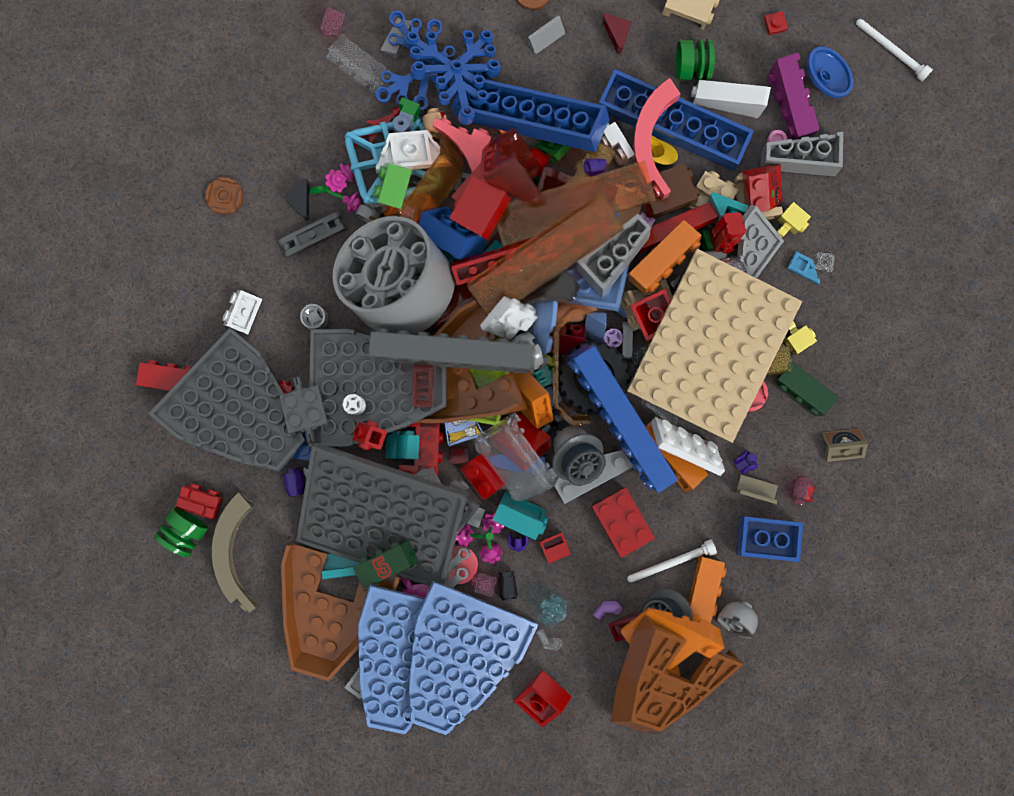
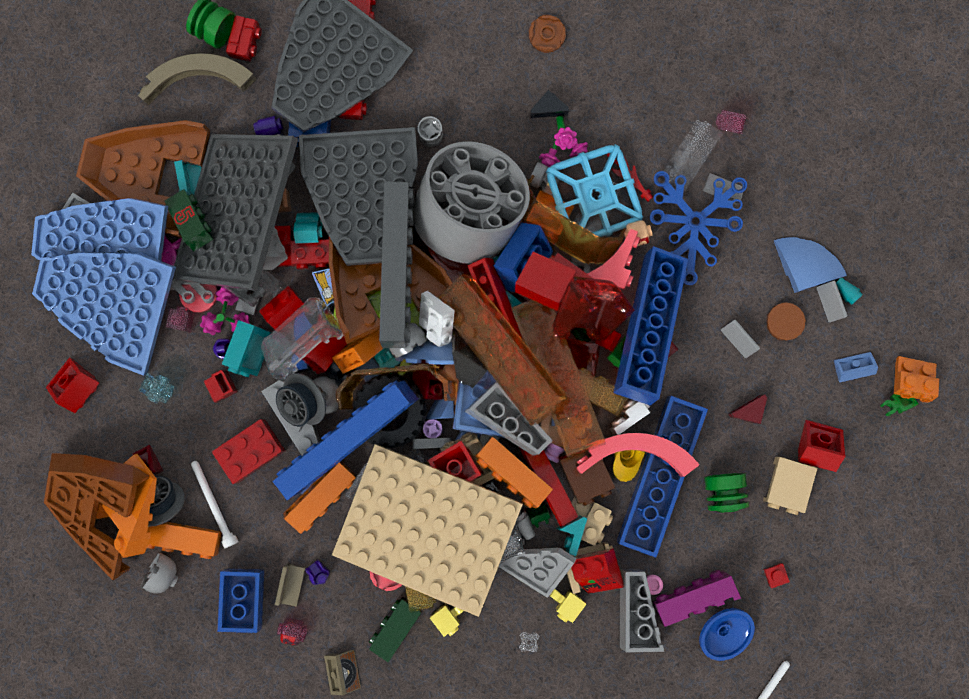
camera: 85 degrees right, 0 degrees up
(242, 311) = (432, 61): white bracket -> none
(303, 409) = (333, 127): dark grey plate -> none
(312, 234) = (514, 122): dark grey plate -> none
(351, 402) = (338, 171): white wheel -> none
(369, 435) = (310, 191): red brick -> none
(392, 185) = (562, 193): bright green brick -> none
(407, 117) = (638, 204): leg -> none
(409, 150) = (602, 207): white wing -> none
(430, 386) = (372, 246): clear red slope -> none
(455, 68) = (673, 252): blue plant -> none
(459, 454) = (303, 284): clear red slope -> none
(507, 585) = (180, 342): black piece -> none
(549, 642) = (127, 387): clear arm -> none
(594, 166) = (598, 394): dark purple arm -> none
(607, 607) = (165, 443): medium lavender arm -> none
(687, 446) = (325, 509): white plate -> none
(728, 232) = (546, 537): red brick -> none
(731, 97) = (691, 532): white slope -> none
(803, 267) = (522, 620): dark azure tile -> none

